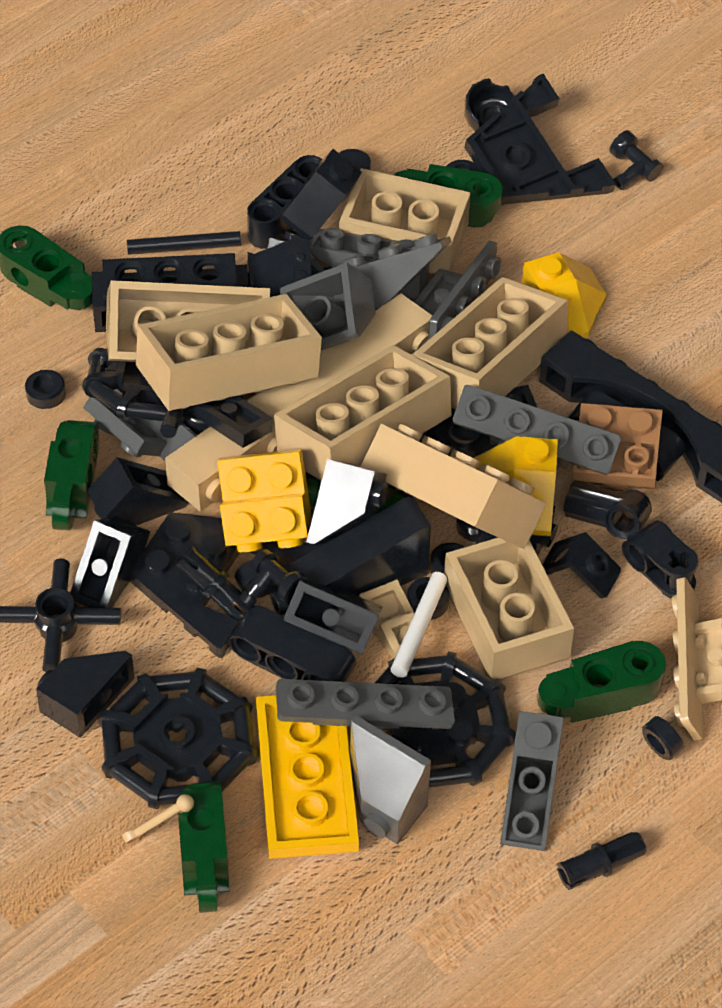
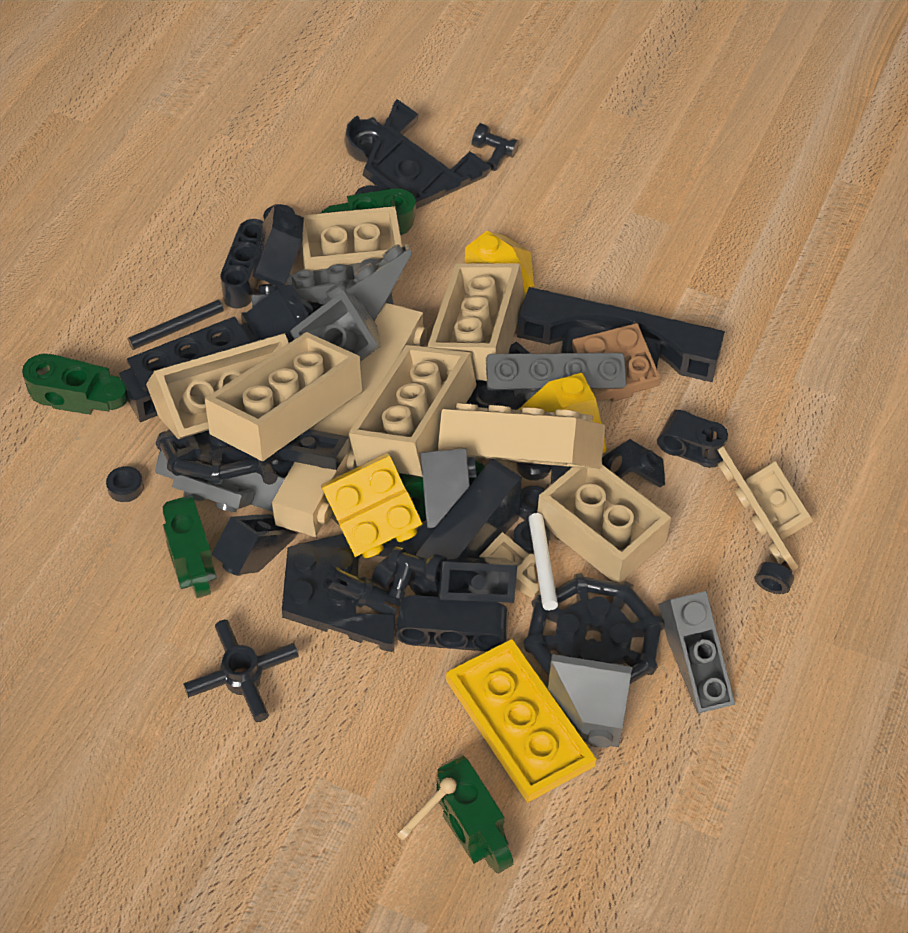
camera: 25 degrees left, 0 degrees up
(83, 688) = (297, 724): black slope -> none
(106, 562) = (261, 608): black slope -> none
(171, 758) = (391, 752): black plate -> none
(378, 704) = (536, 645): dark grey bracket -> none
(452, 292) = (422, 290): dark grey bracket -> none
(601, 859) = (783, 694): black axle -> none
(605, 508) = (627, 414): black piece -> none
(629, 678) = (690, 571): dark green piece -> none

